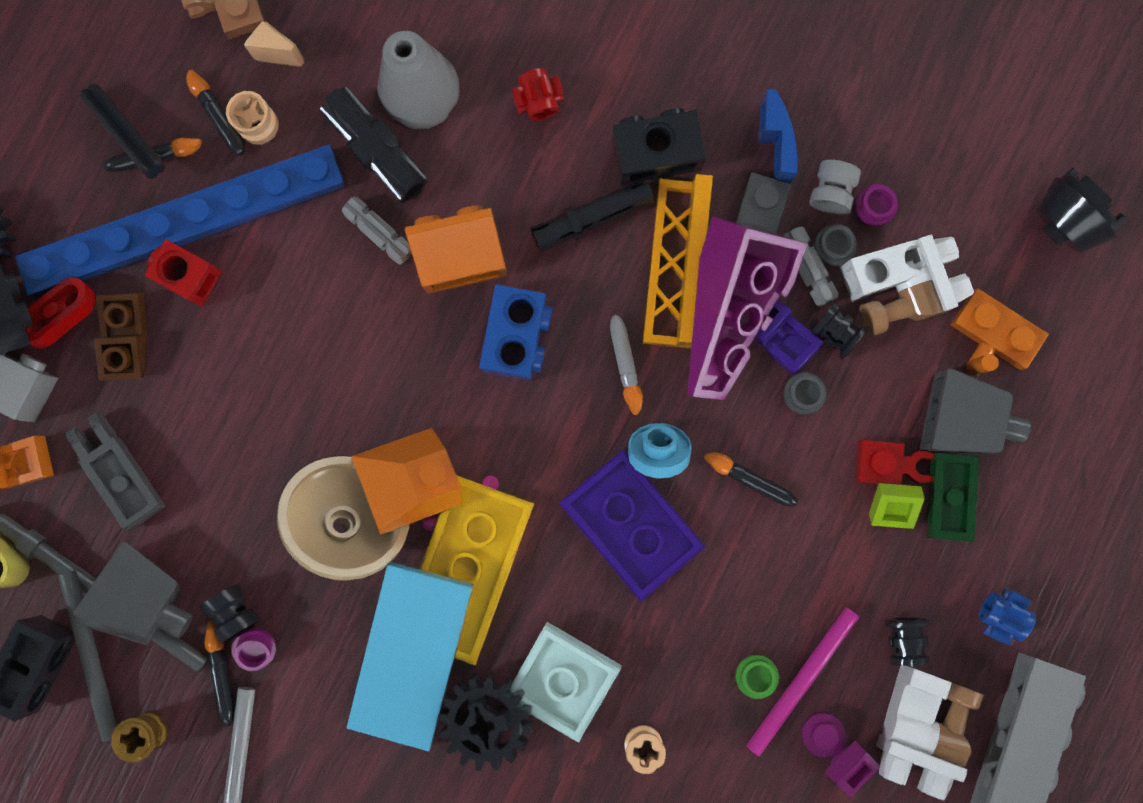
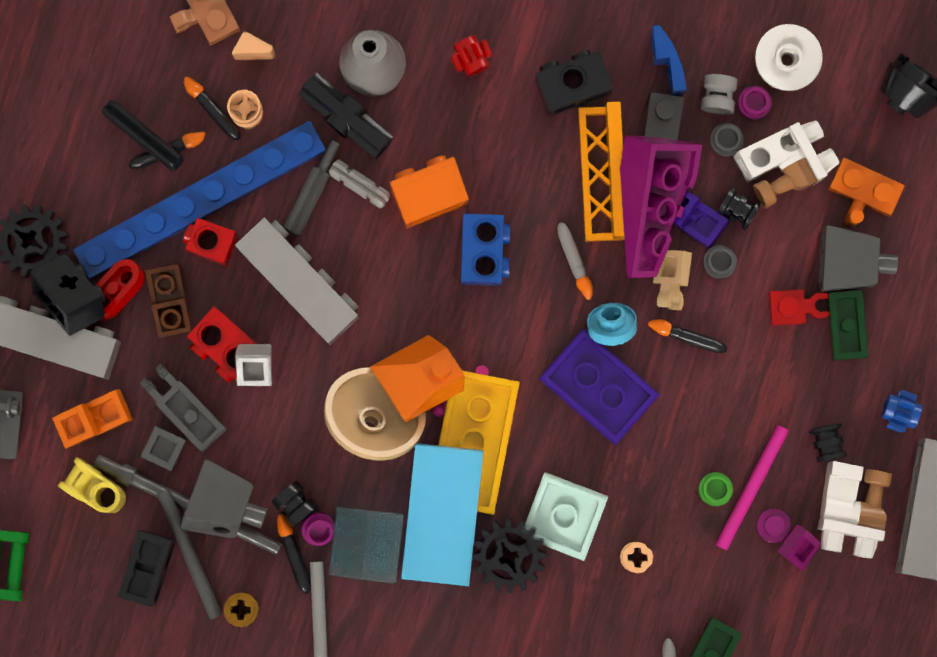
camera: 15 degrees left, 0 degrees up
(80, 518) = (163, 448): none -> dark grey plate
(185, 395) = (230, 338): none -> red brick
(201, 432) = (254, 365): none -> light grey slope
(279, 336) = (297, 281): none -> light grey brick
(310, 682) = (366, 545): none -> clear light blue slope
(317, 231) = (310, 192): none -> dark grey axle
(588, 216) = (524, 148): black pin -> none
(744, 400) = (672, 275): none -> tan plate
(813, 270) = (711, 161): light grey axle -> none
(896, 505) = (803, 339): lime plate -> none
(938, 140) = (790, 41): none -> white dish

